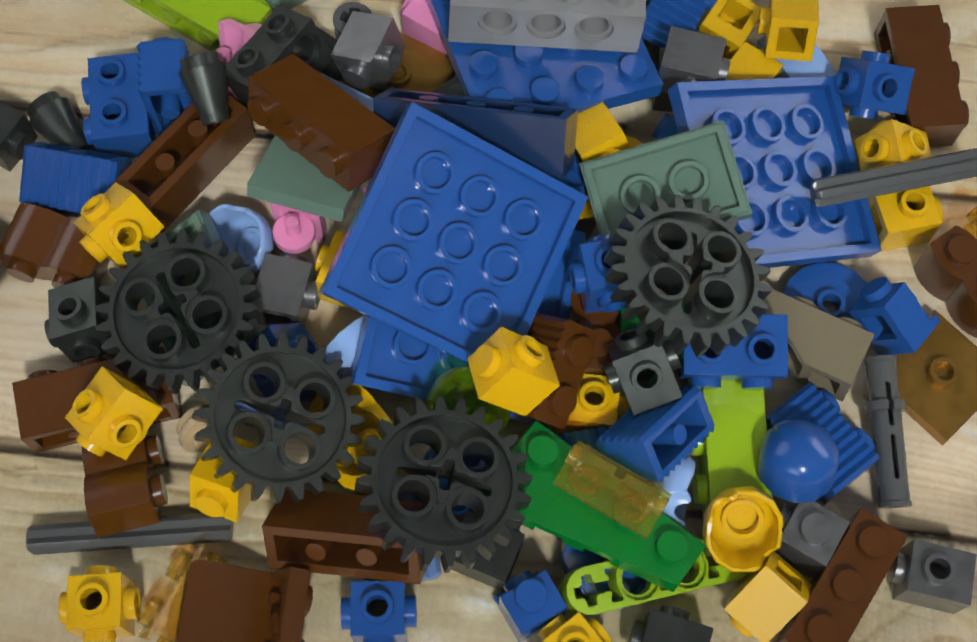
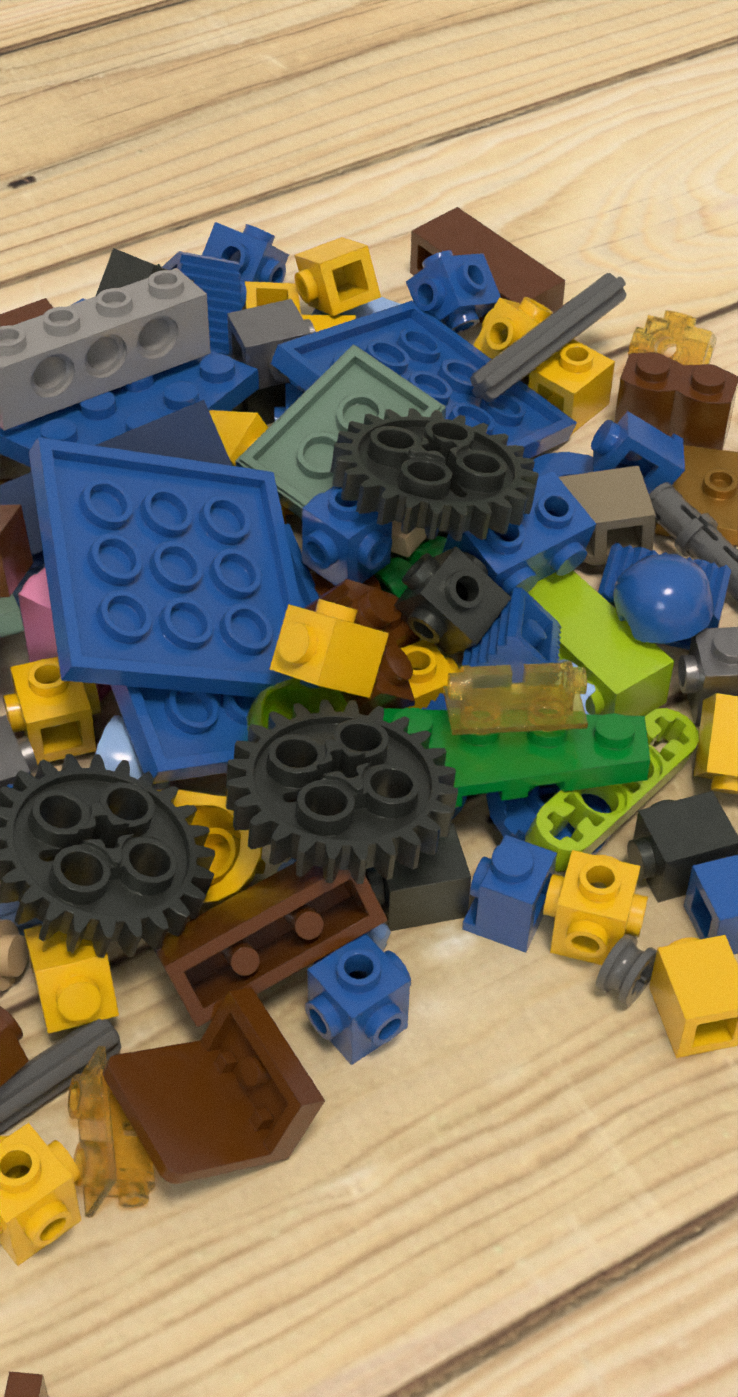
camera: 35 degrees left, 20 degrees down
(742, 528) = (663, 681): yellow hair -> none

